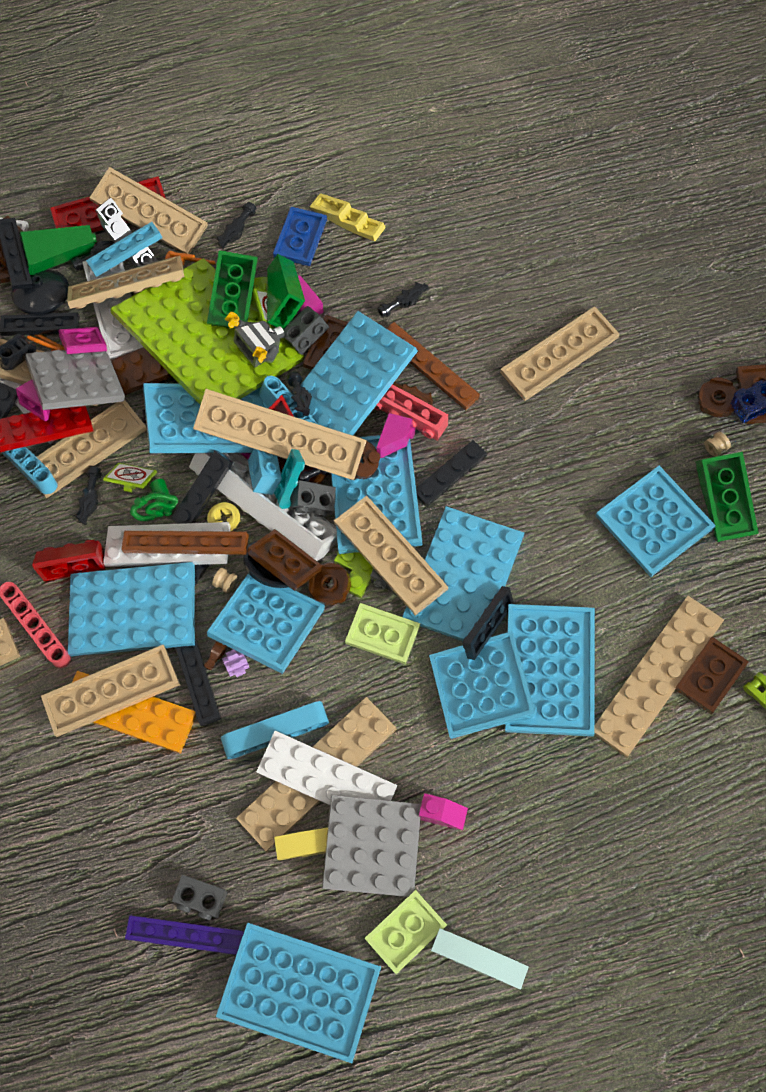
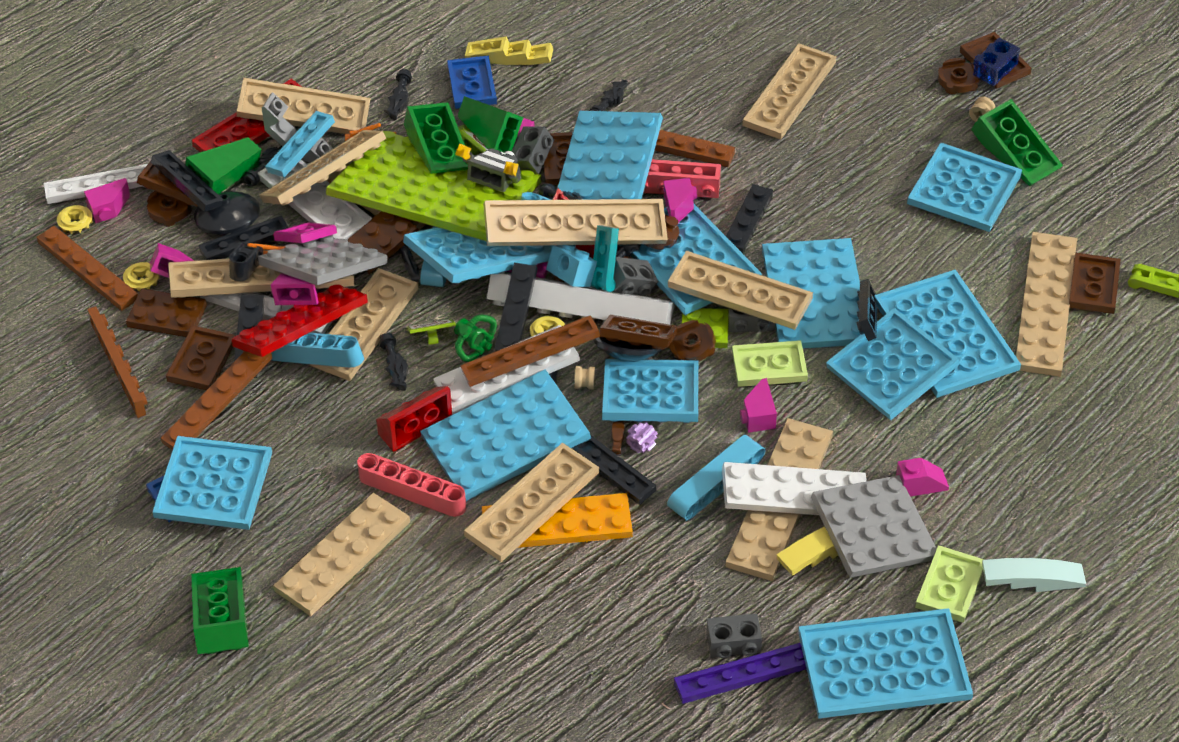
camera: 30 degrees left, 20 degrees down
(347, 676) = (759, 409): none -> dark pink slope

